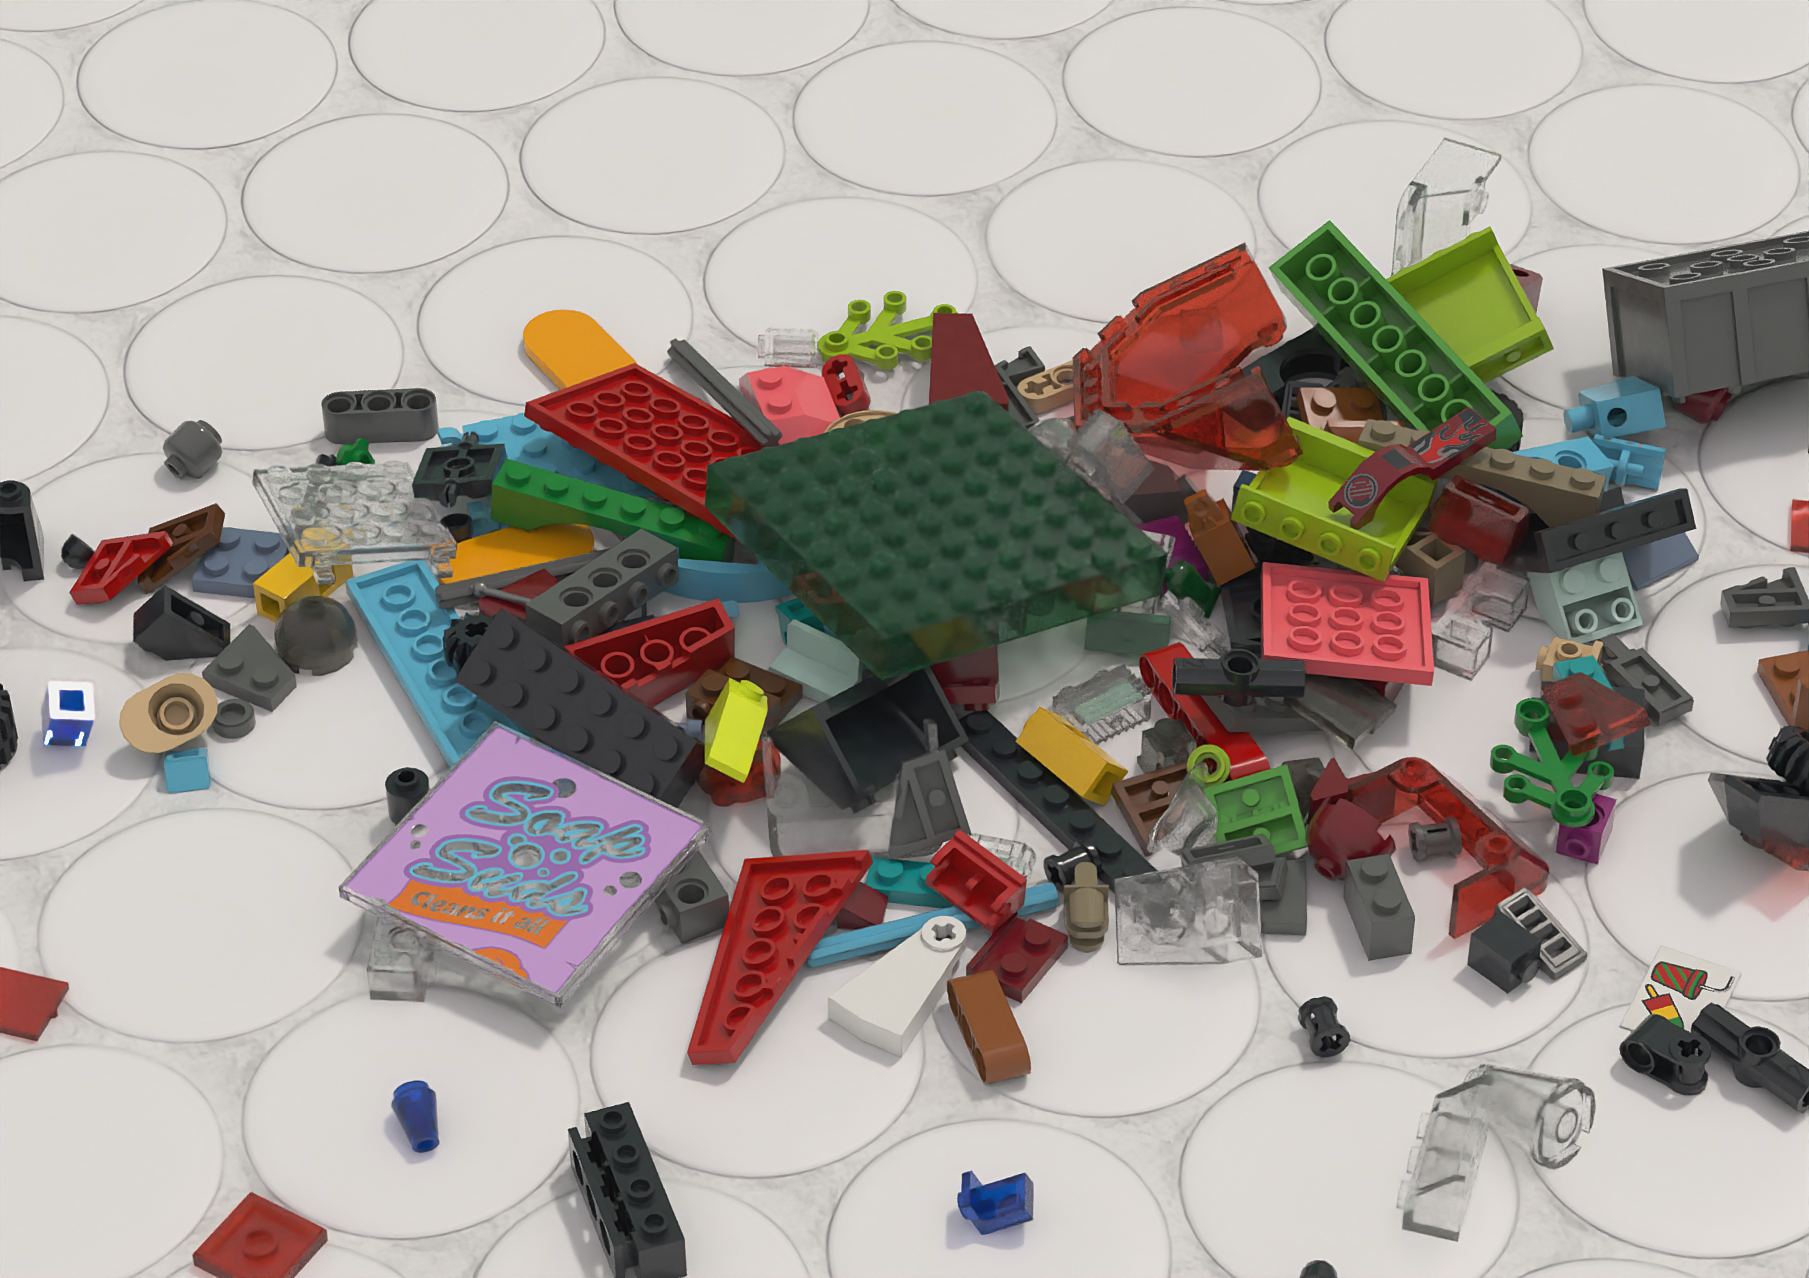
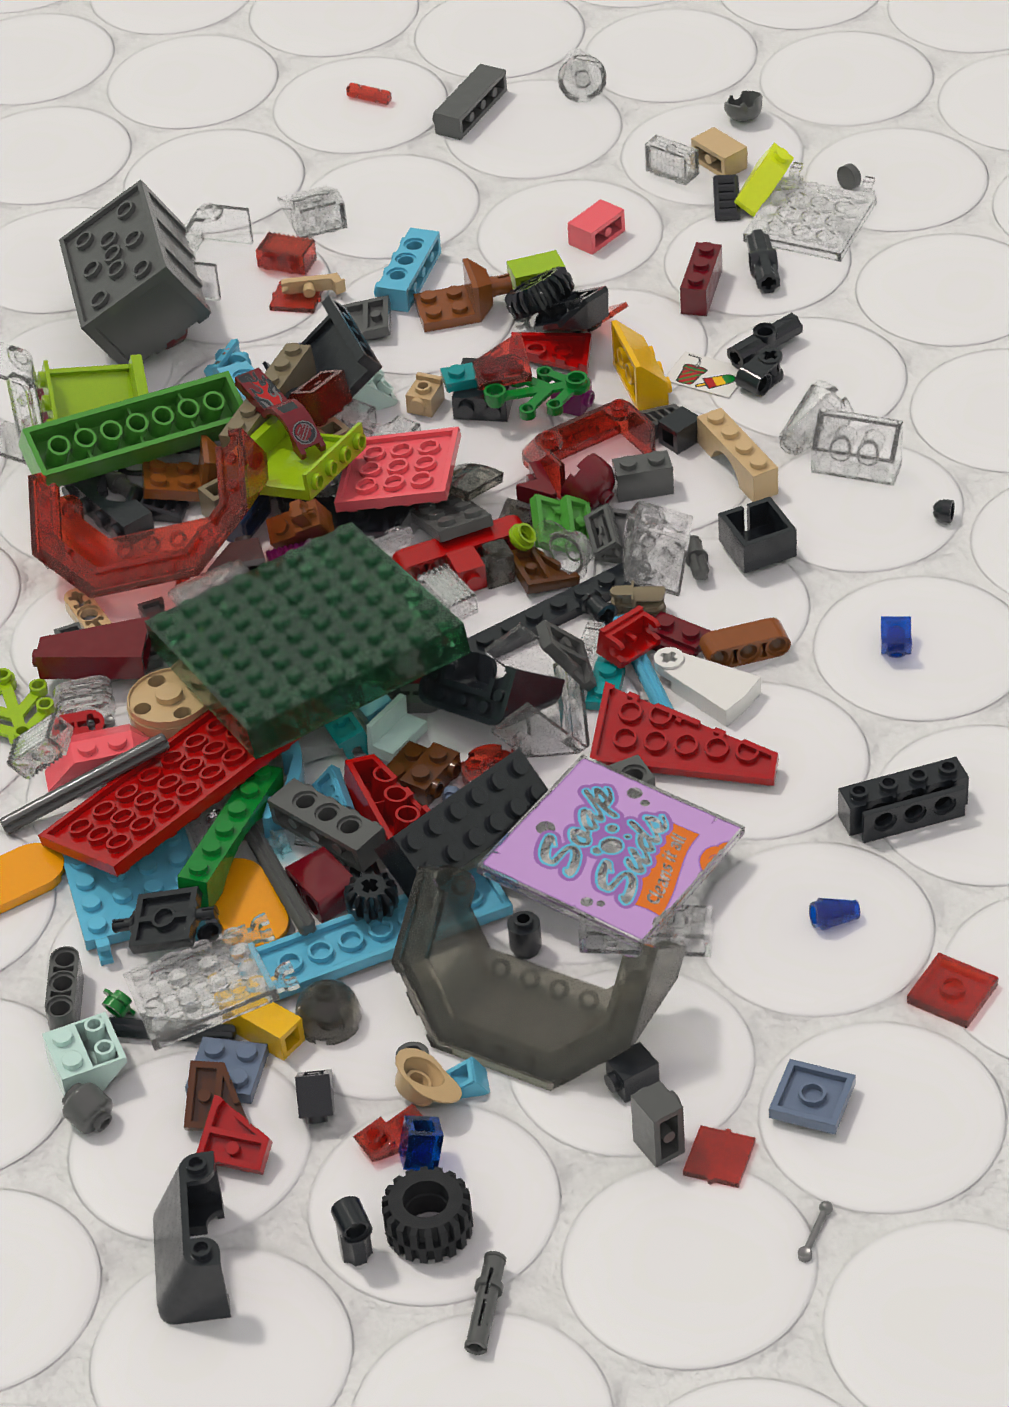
camera: 85 degrees left, 0 degrees up
(45, 917) = (658, 1123): none -> dark grey brick
(85, 1086) = (812, 1096): none -> sand blue plate
(108, 700) = (382, 1138): none -> clear red slope
(157, 909) = (631, 1071): none -> black brick
(251, 671) = (358, 1052): dark grey wing -> none
(262, 429) = (84, 1052): none -> light aqua slope
(307, 769) = (510, 1009): none -> clear smoke windscreen
(481, 589) = (338, 859): flat silver hinge -> none
(735, 728) = (492, 739): neon yellow slope -> none
(907, 380) = (85, 694): none -> clear brick
(1071, 755) = (500, 603): yellow brick -> none
(1109, 457) = (252, 541): clear brick -> none
(1146, 711) = (468, 567): none -> red brick
(1190, 975) = (697, 558): none -> dark grey axle
(1226, 1032) = (768, 535): none -> black piece
(1238, 677) = (468, 500): black piece -> none
(1323, 1027) = (733, 501): black bush -> none
(1396, 1032) = (754, 469): none -> tan arch
(1435, 838) = (575, 455): dark grey bush -> none
(1617, 409) = (184, 356): medium azure torso -> none
(1637, 669) = (433, 366): dark grey hinge -> none
(1650, 890) = (638, 368): none -> yellow slope
(1697, 818) = (558, 350): none -> red wing

